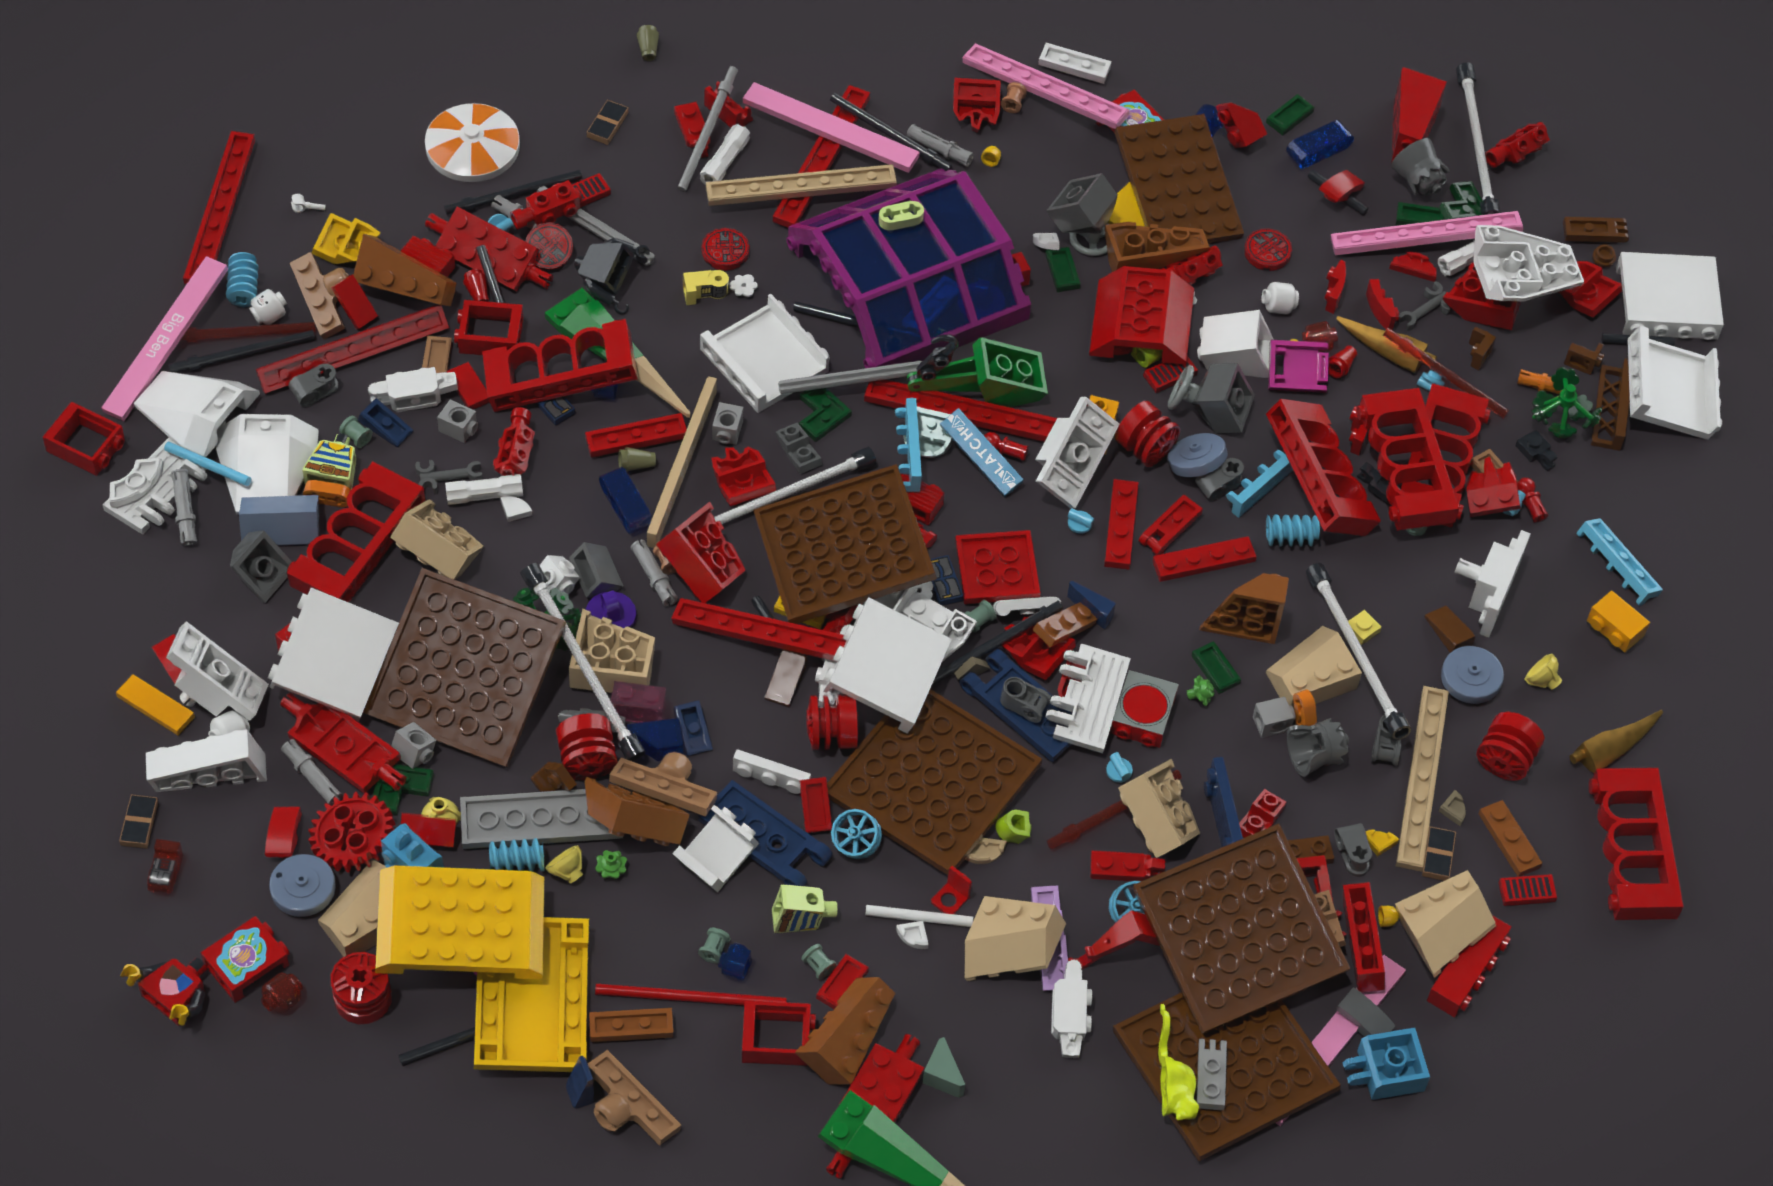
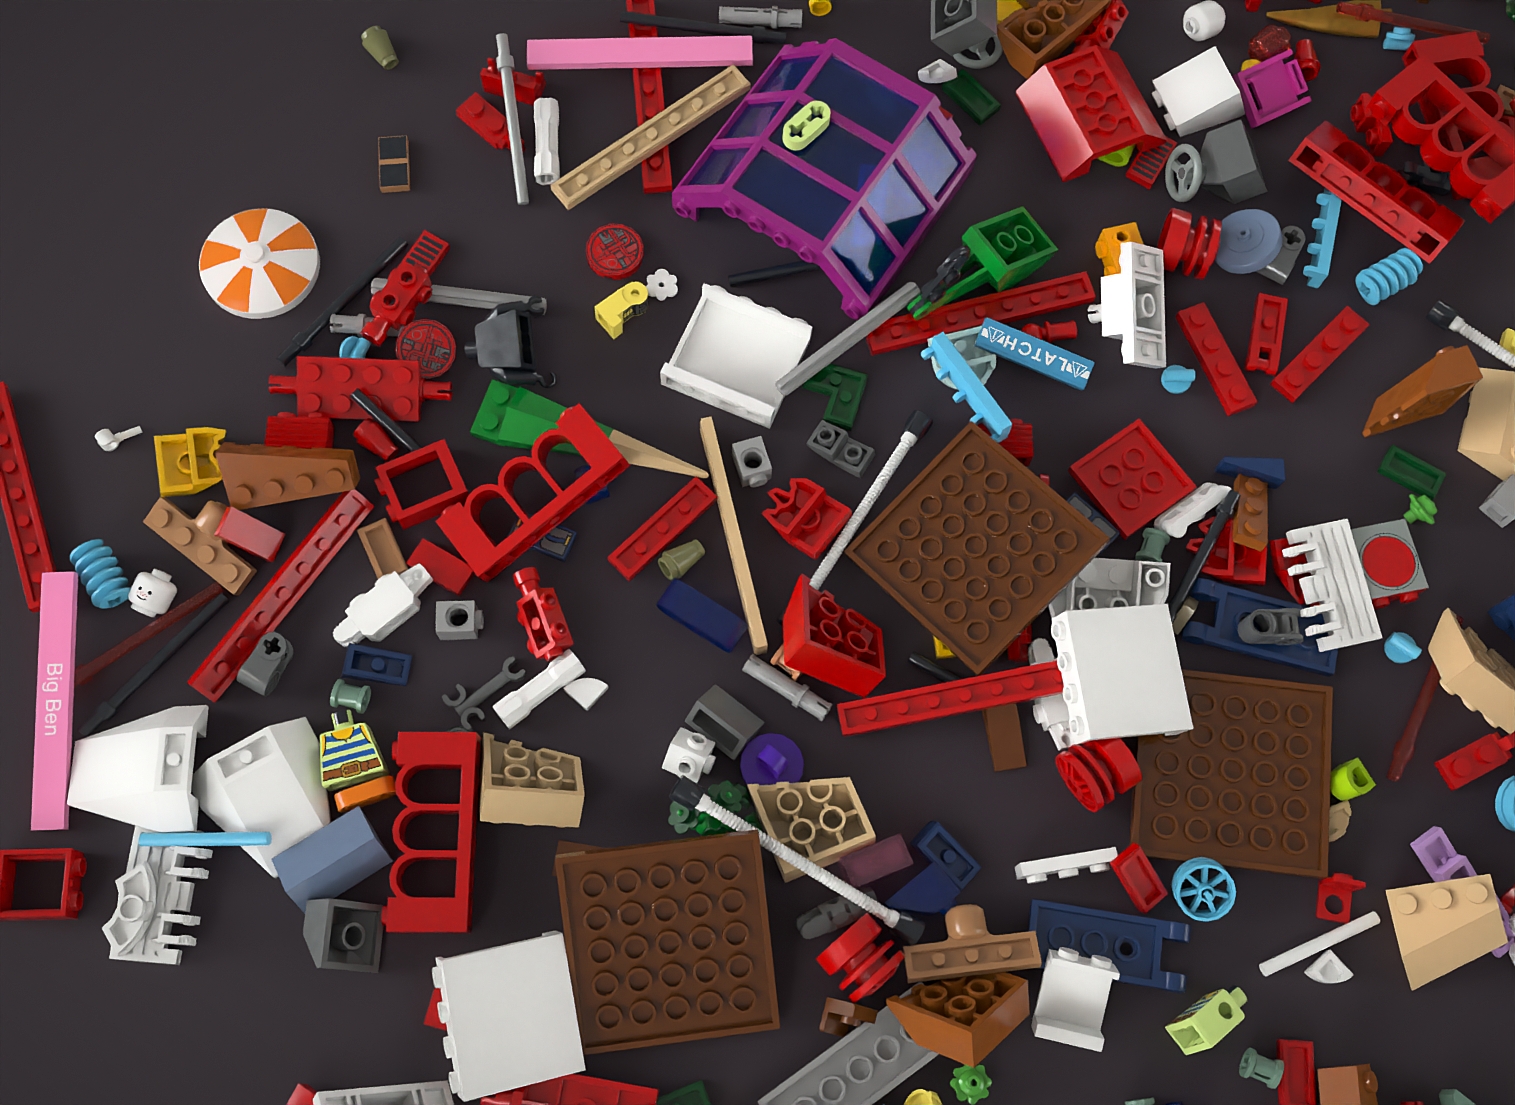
camera: 30 degrees left, 15 degrees up
(185, 516) = (215, 916): light grey pin -> none
(414, 745) = (660, 1054): light grey brick -> none

